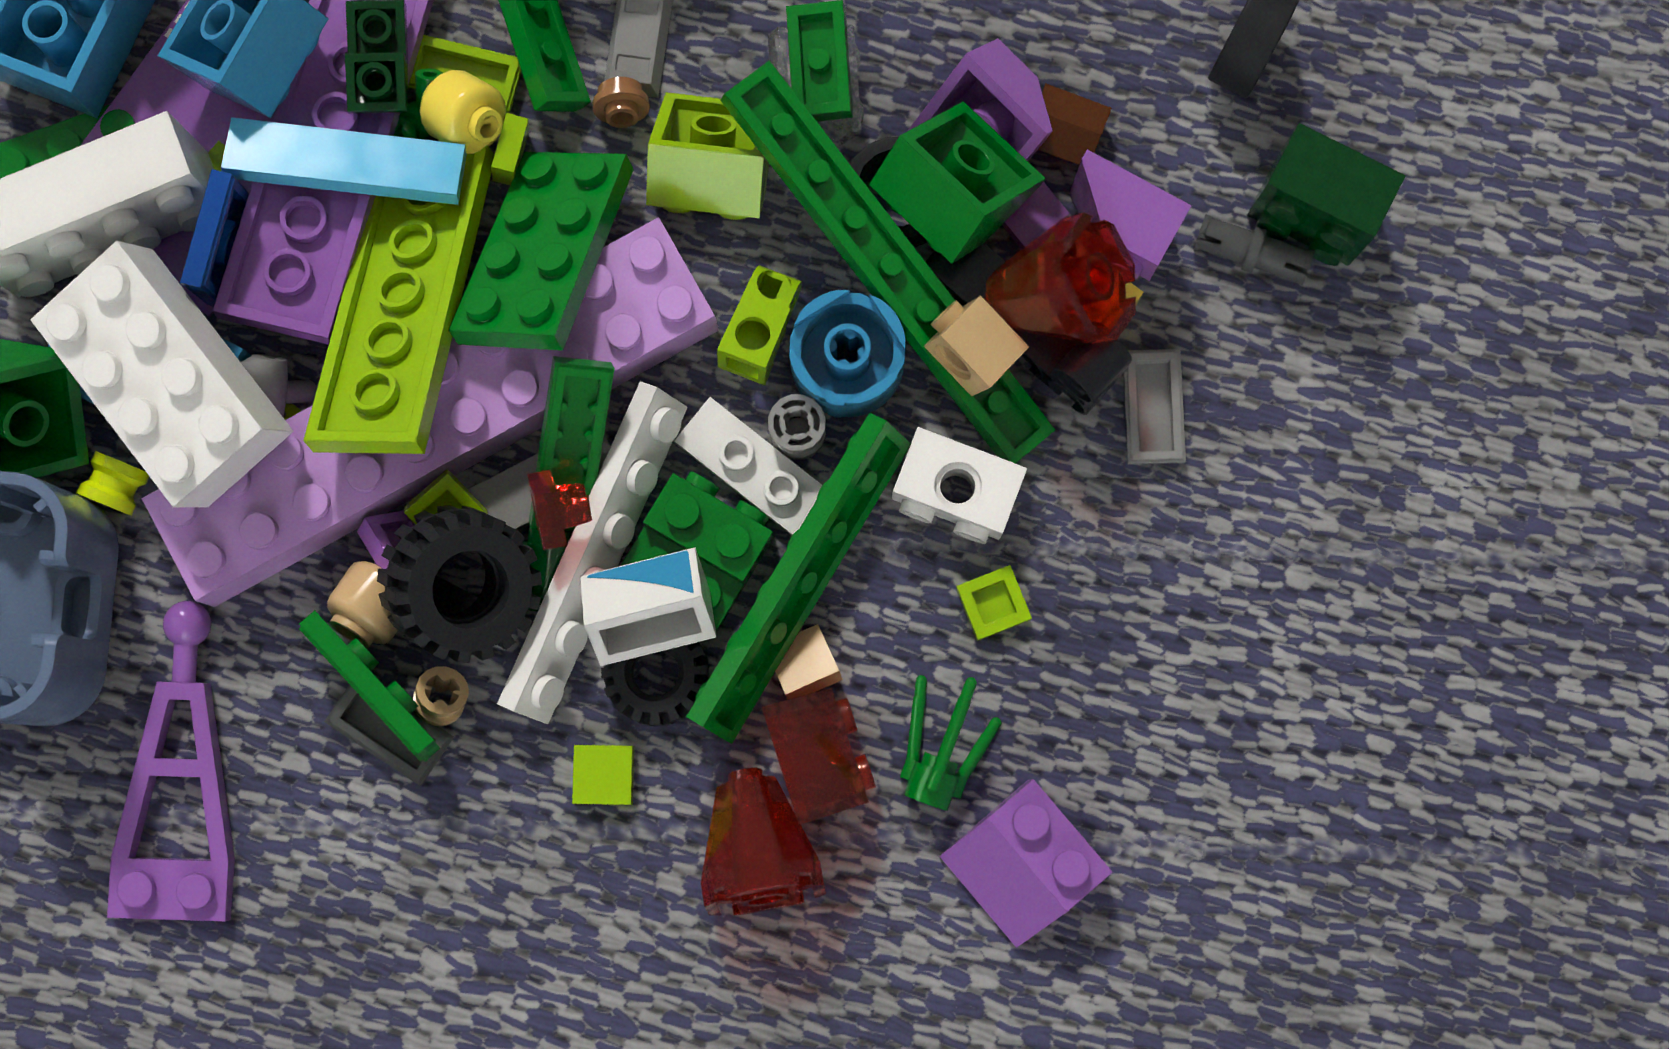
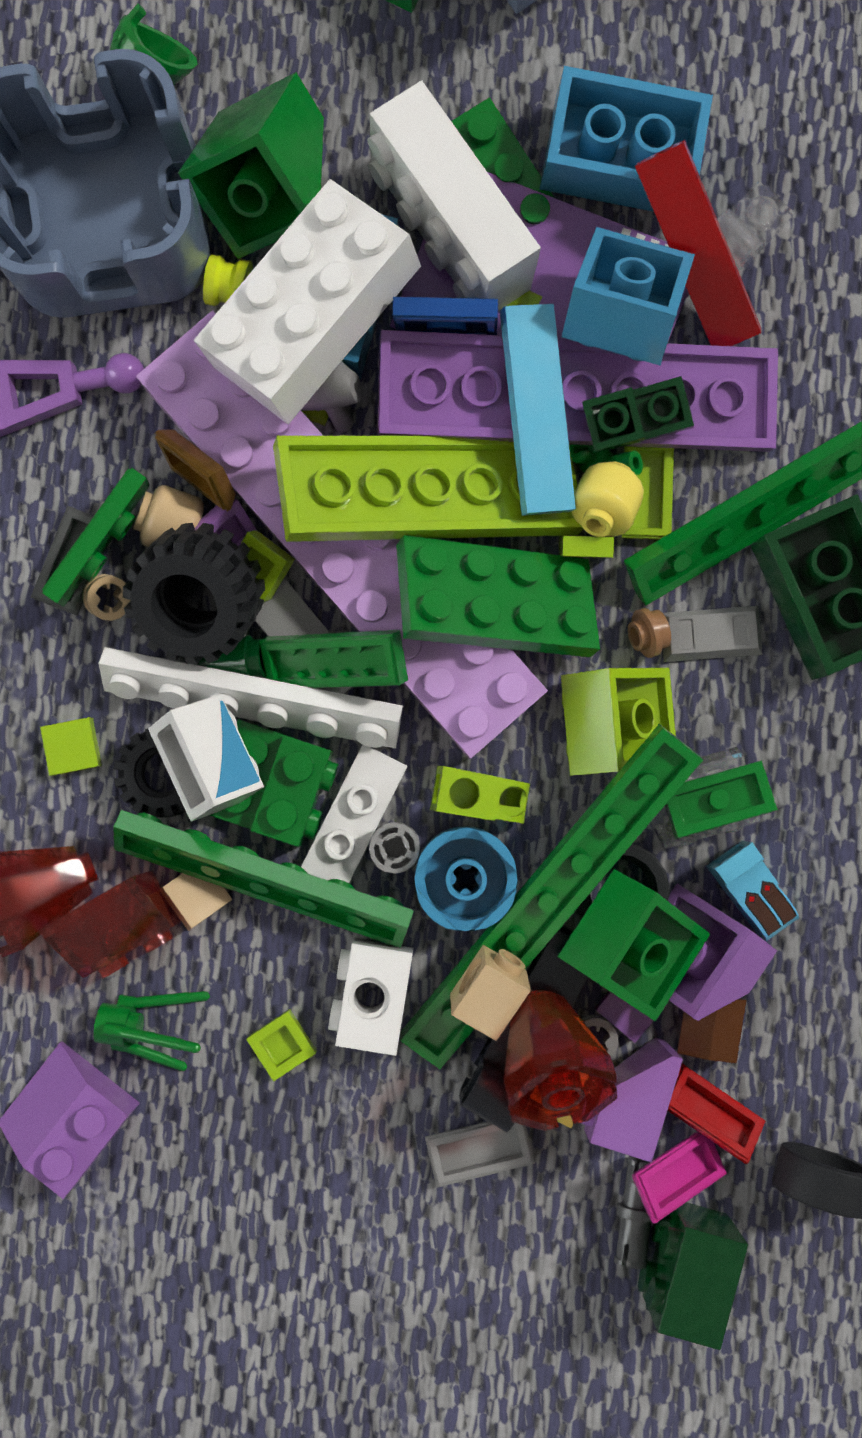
camera: 75 degrees right, 5 degrees up
(317, 557) = (196, 468): none -> pearl gold tile
(557, 508) = (274, 662): clear red tile -> none
(925, 51) = (753, 889): none -> medium azure leg
(1169, 140) = (715, 1114): none -> red tile
(1220, 194) = (678, 1175): none -> dark pink tile

